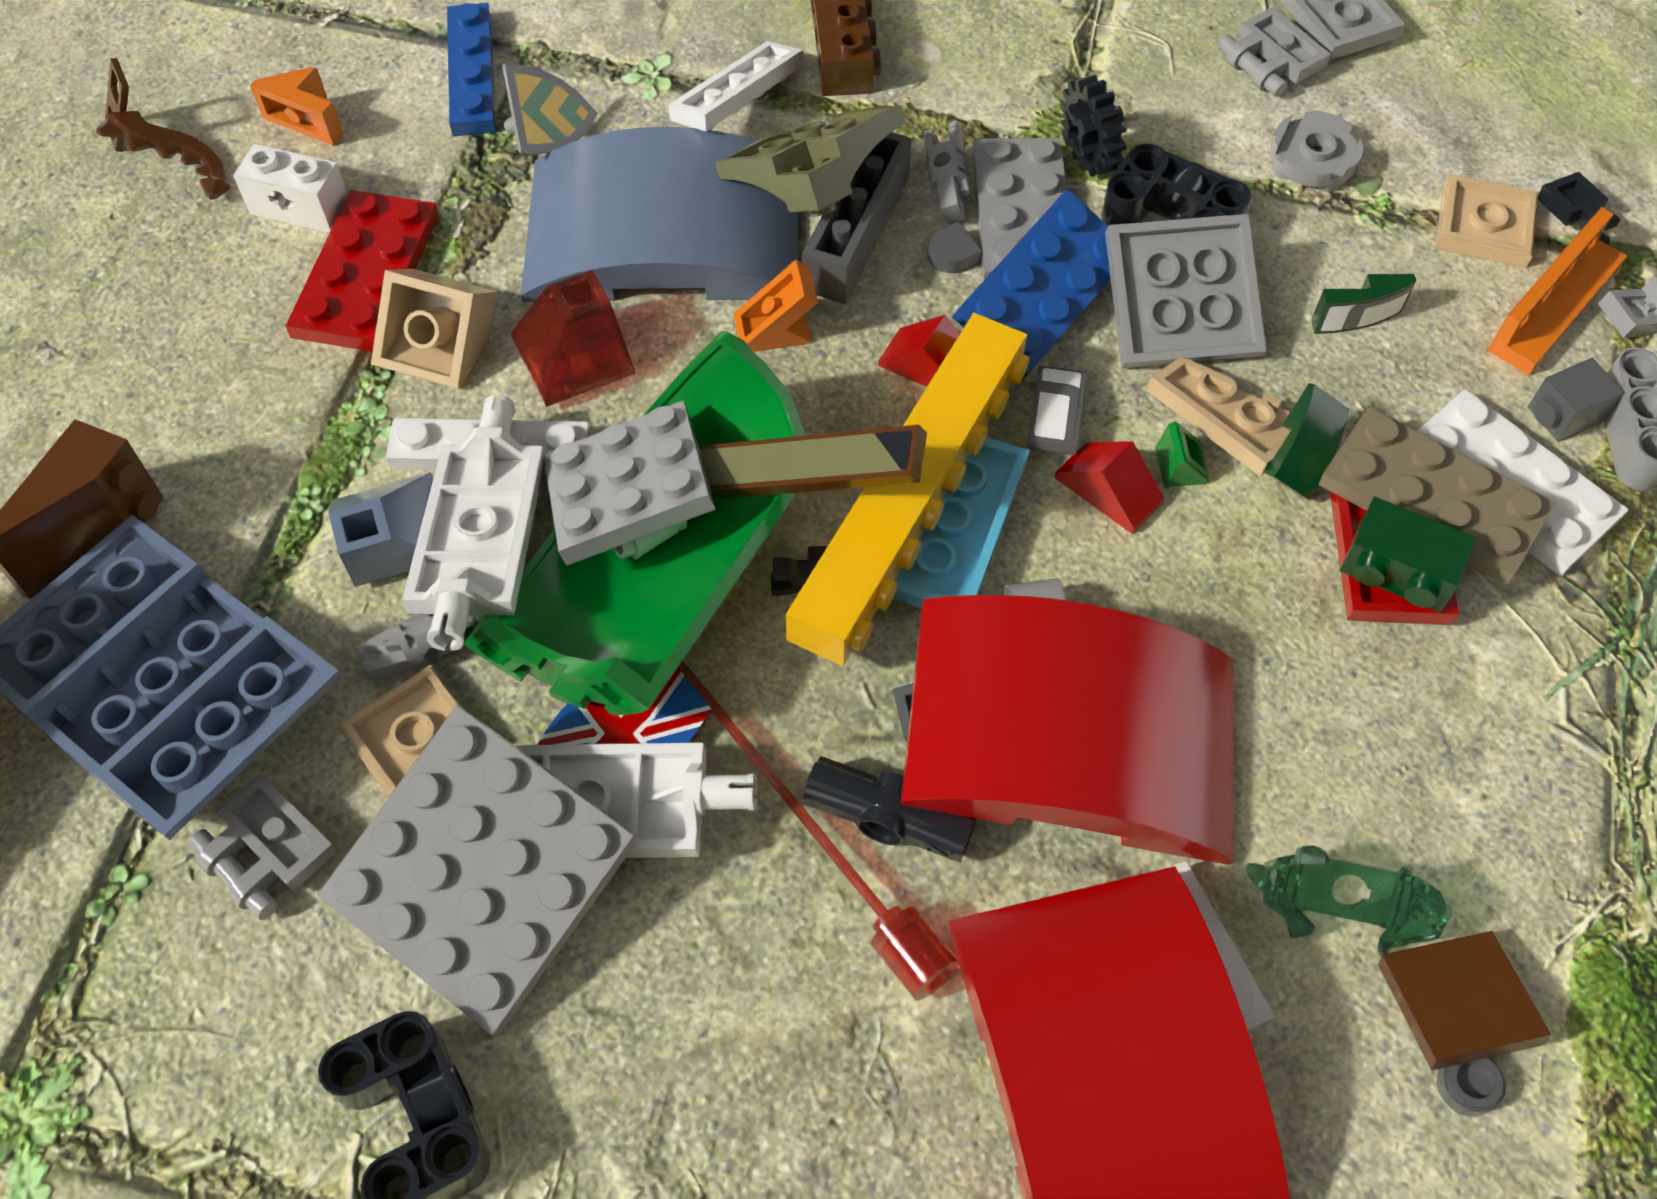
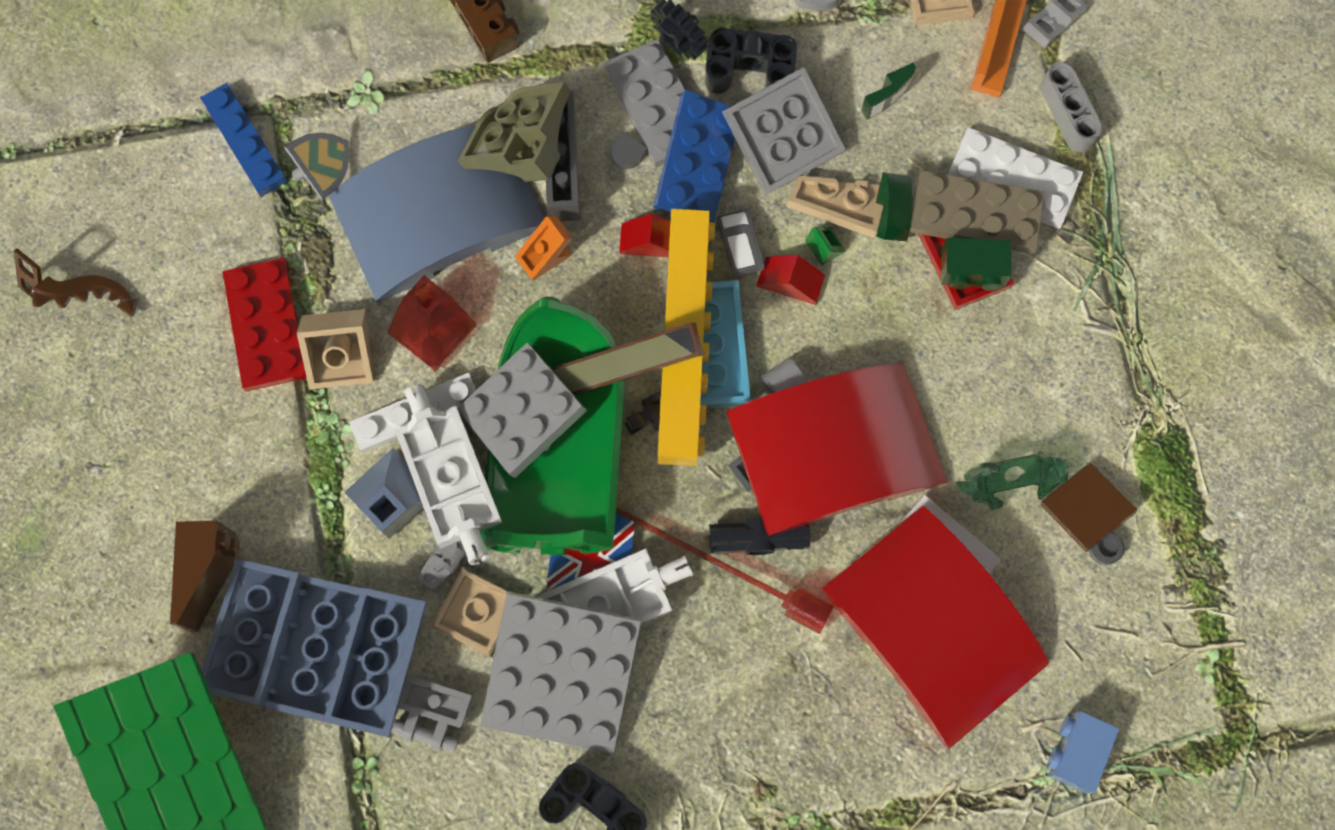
camera: 25 degrees left, 15 degrees up
(291, 187) = (186, 288): white brick -> none
(298, 103) = (144, 220): orange slope -> none
(735, 86) = (435, 88): white plate -> none
(948, 172) = (599, 95): light grey hinge -> none
(1575, 399) = (1031, 109): dark grey brick -> none

